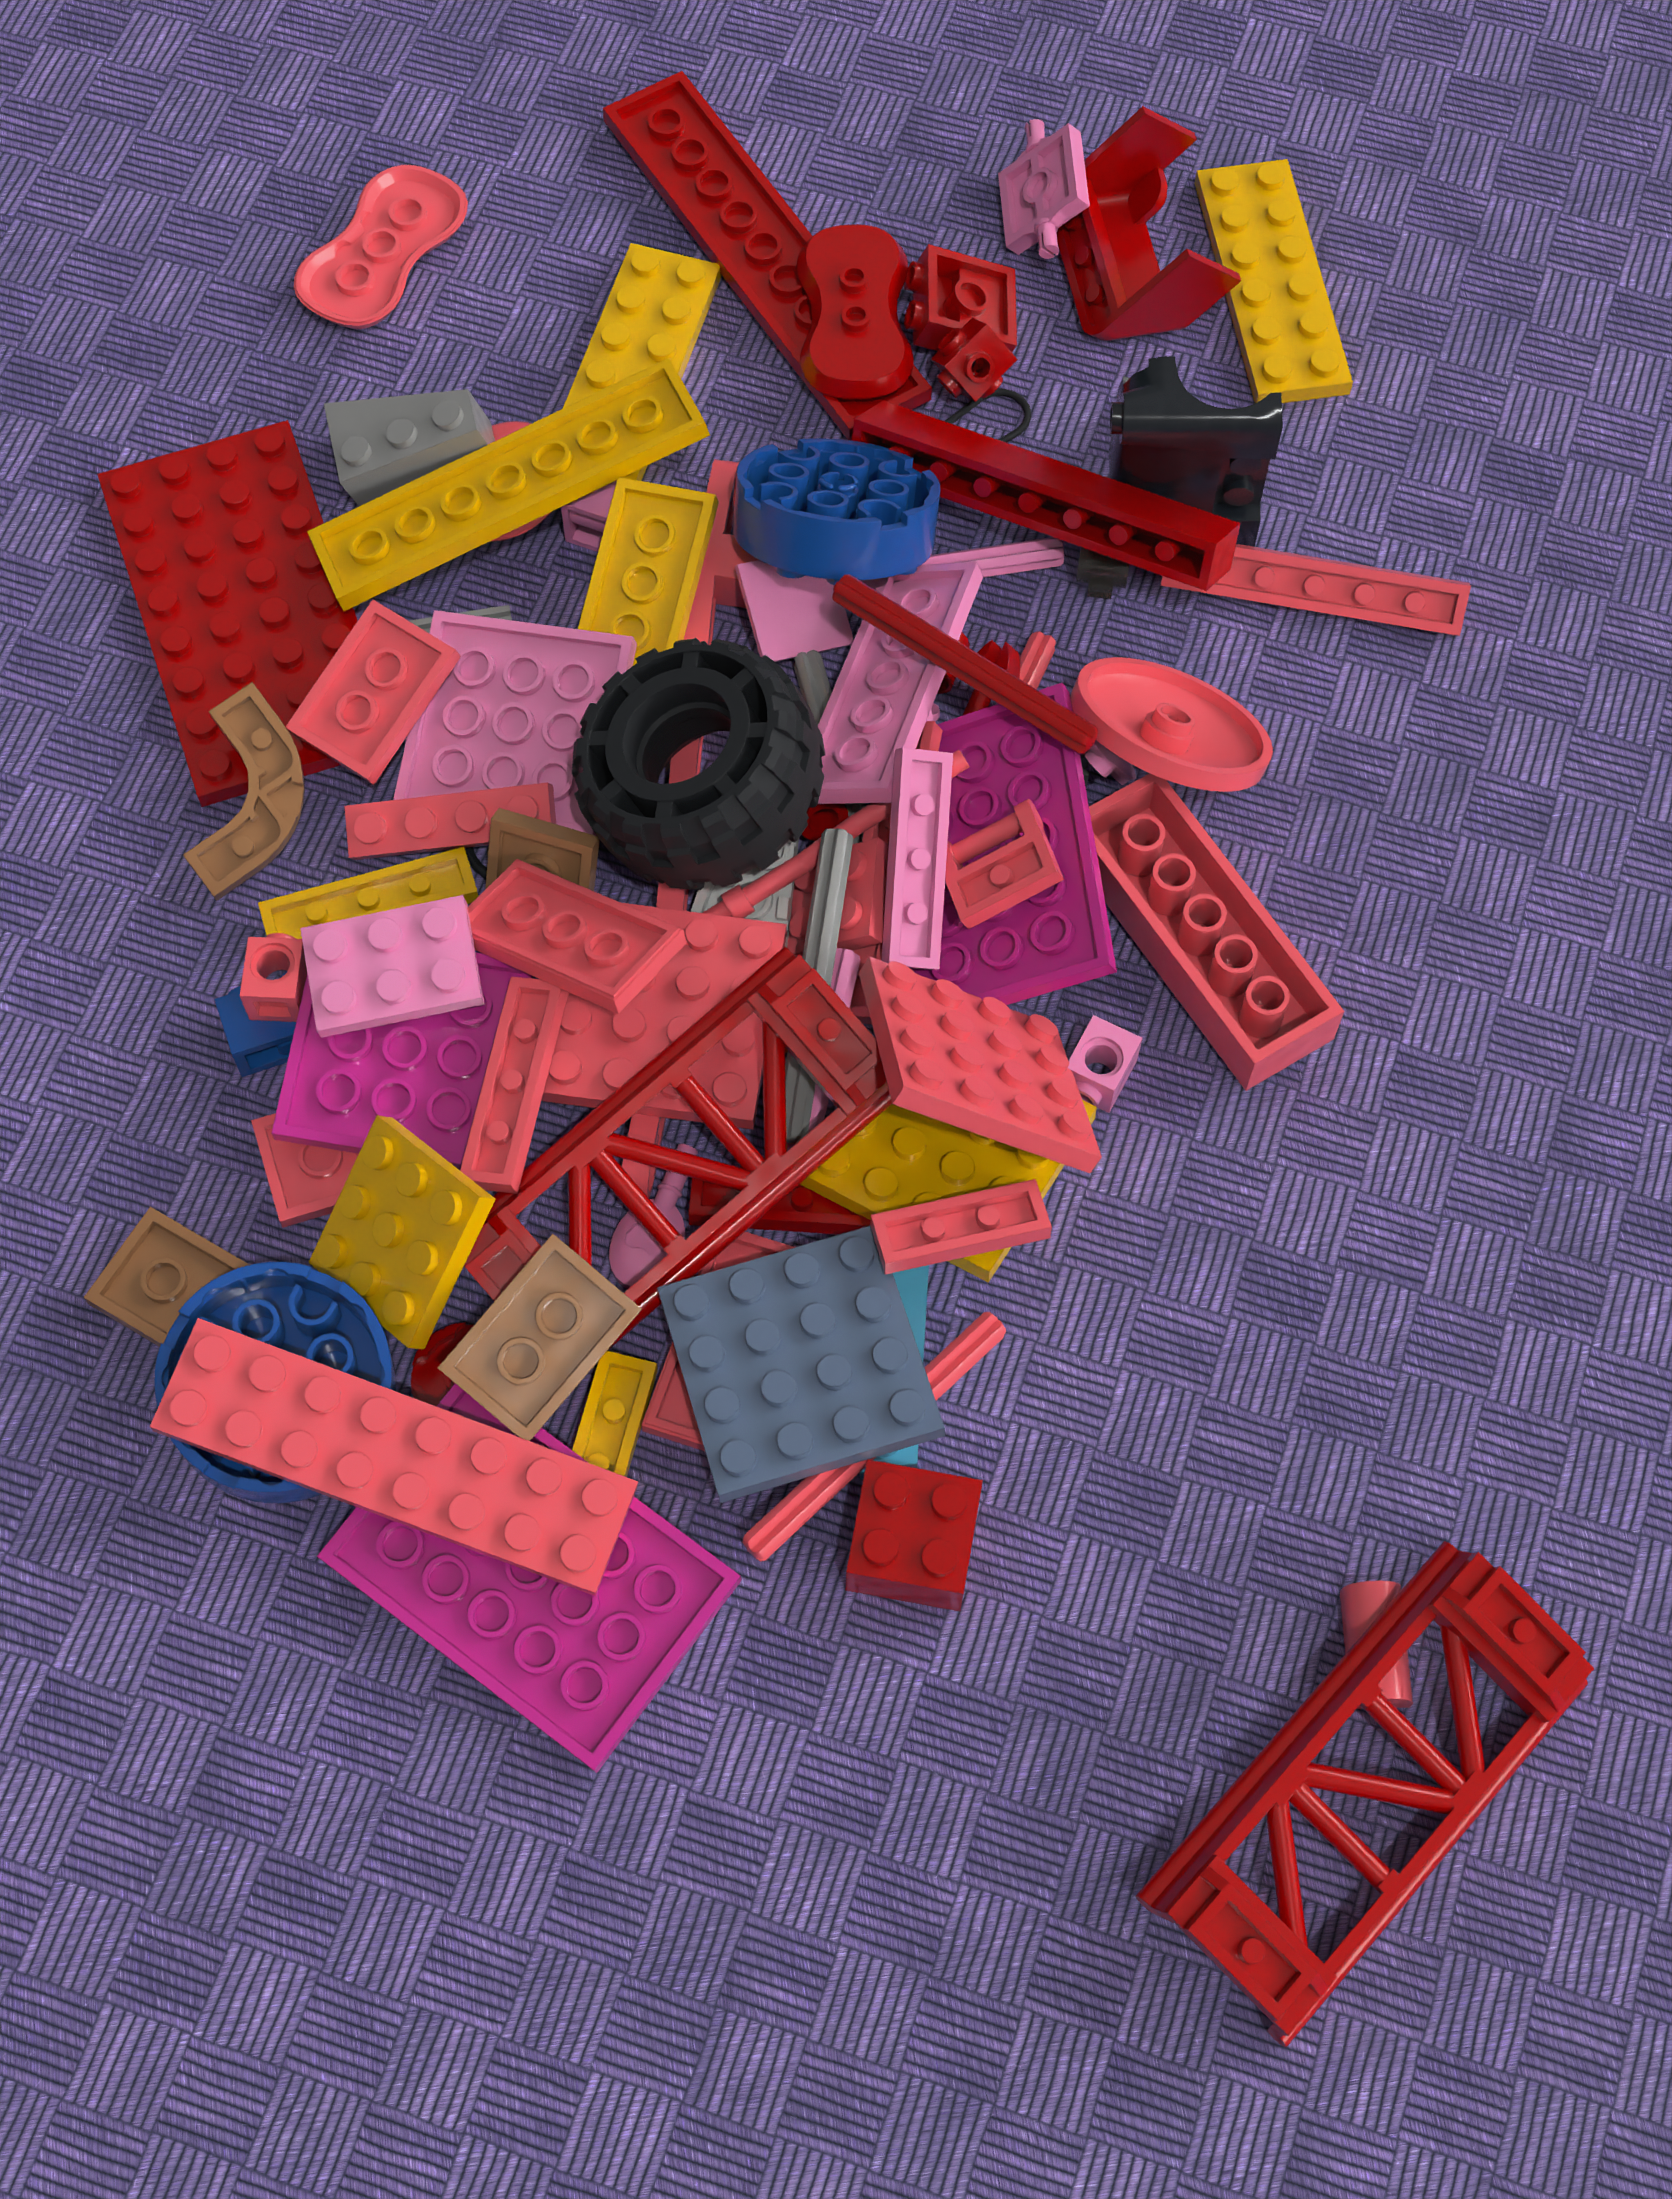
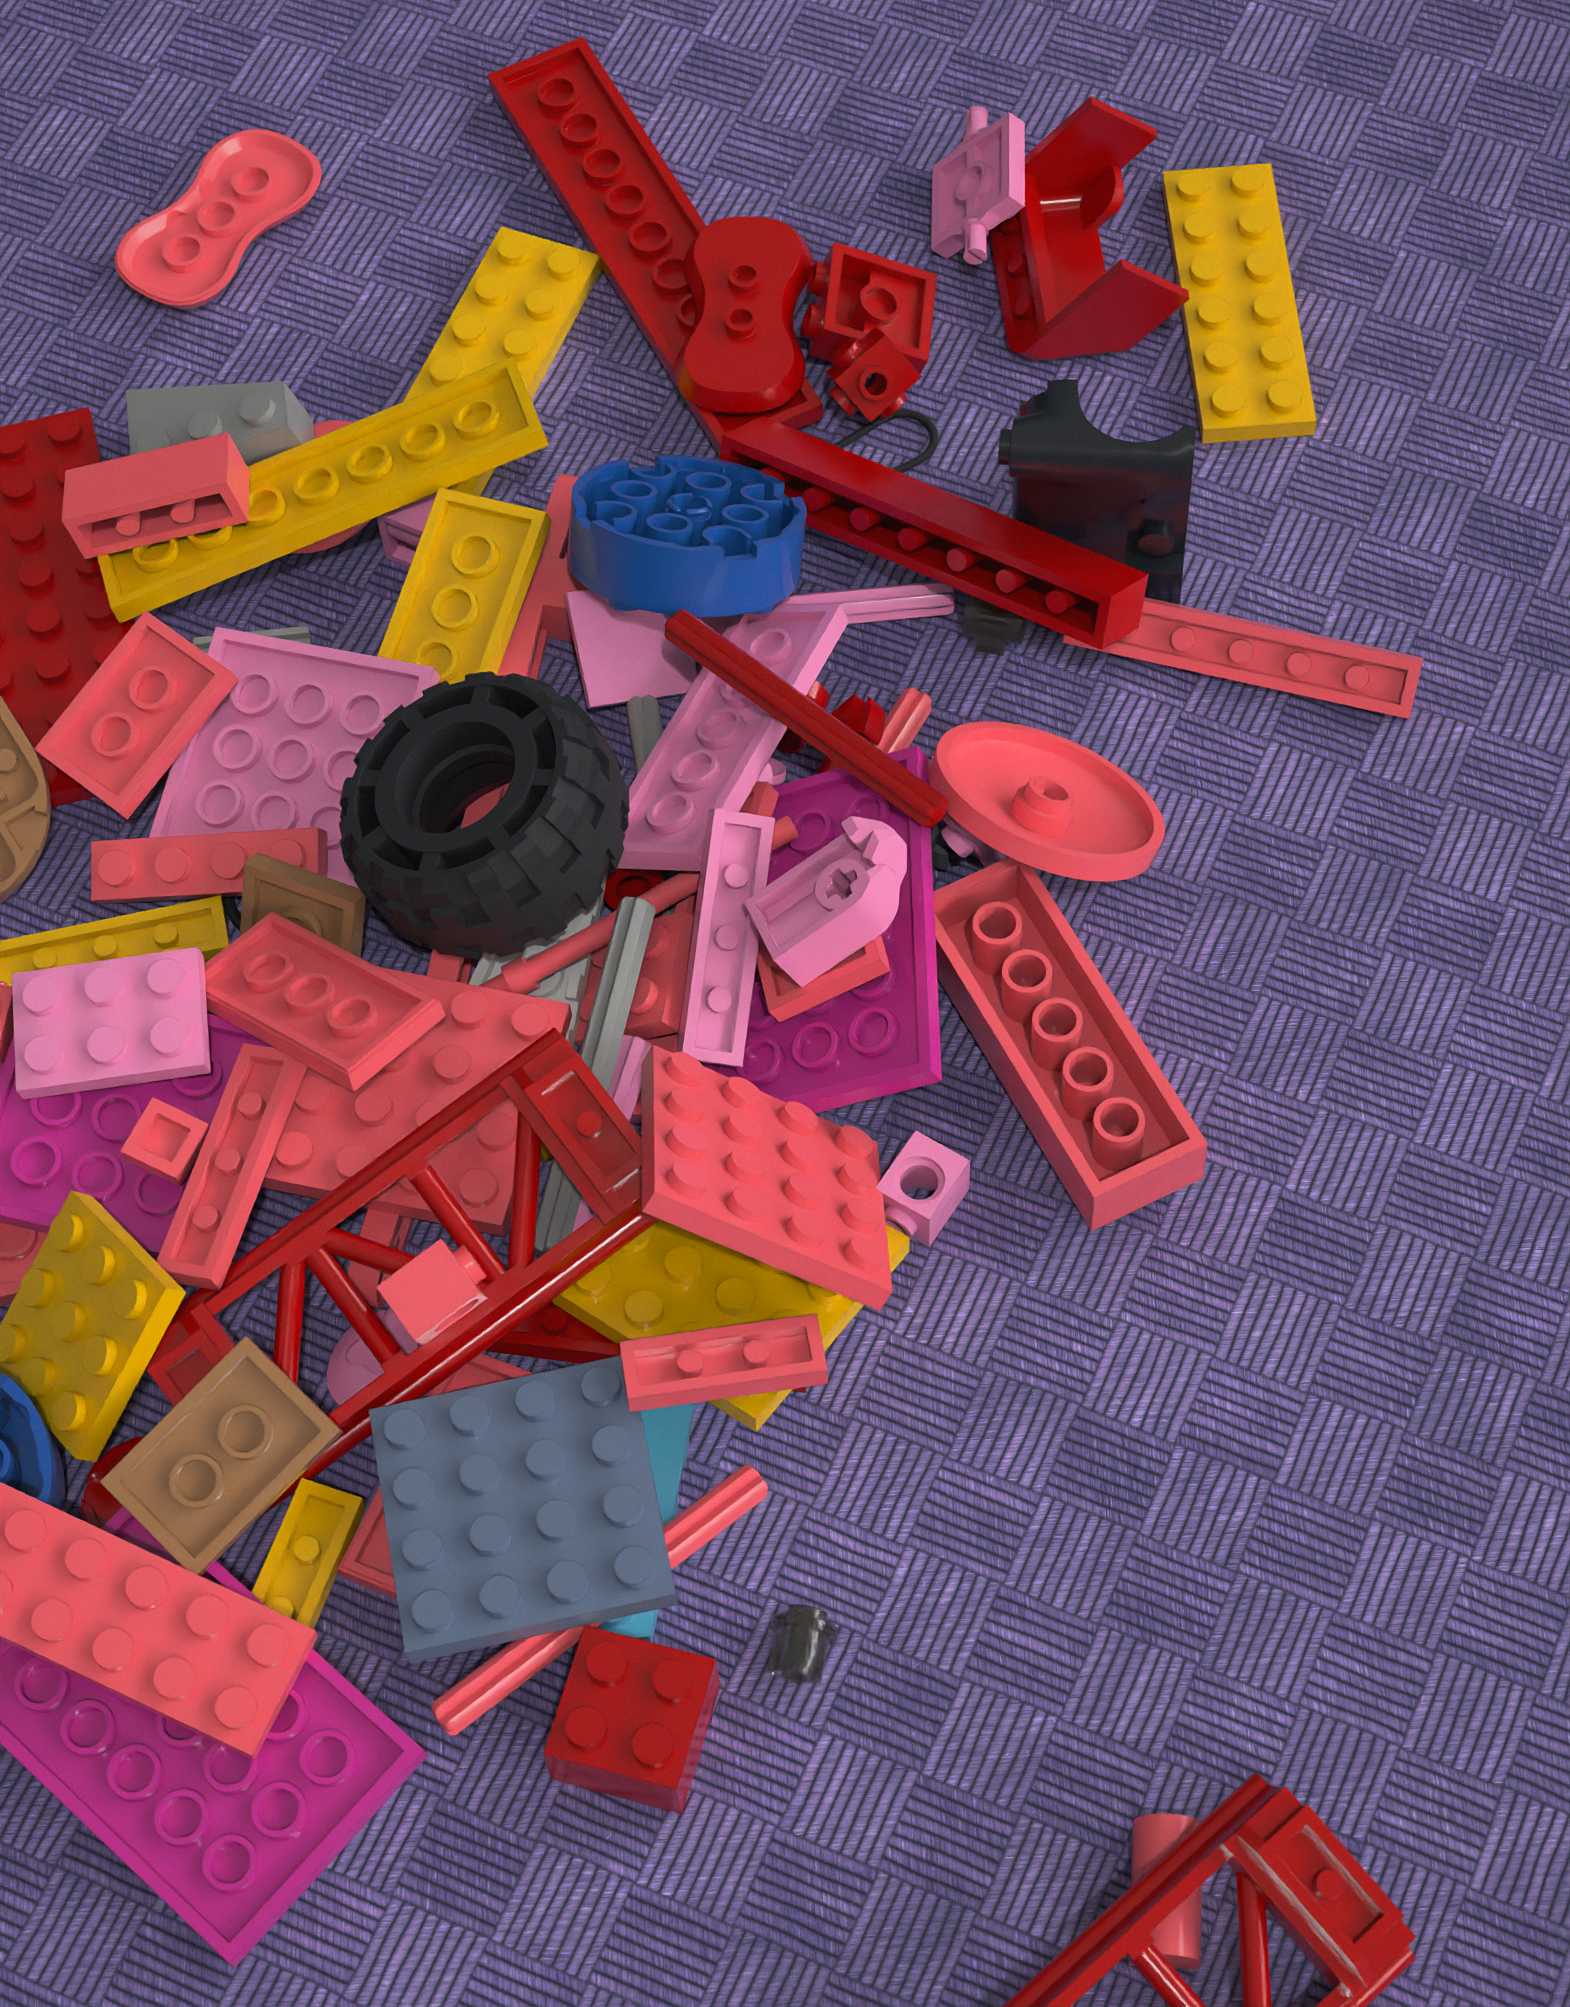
camera: 10 degrees right, 5 degrees down
(366, 496) = (156, 495): none -> coral brick
(453, 1067) = (165, 1141): none -> coral plate
(709, 1181) = (434, 1290): none -> coral brick
(1011, 821) = (832, 900): none -> bright pink piece
(1046, 1460) = (801, 1643): none -> clear smoke hose

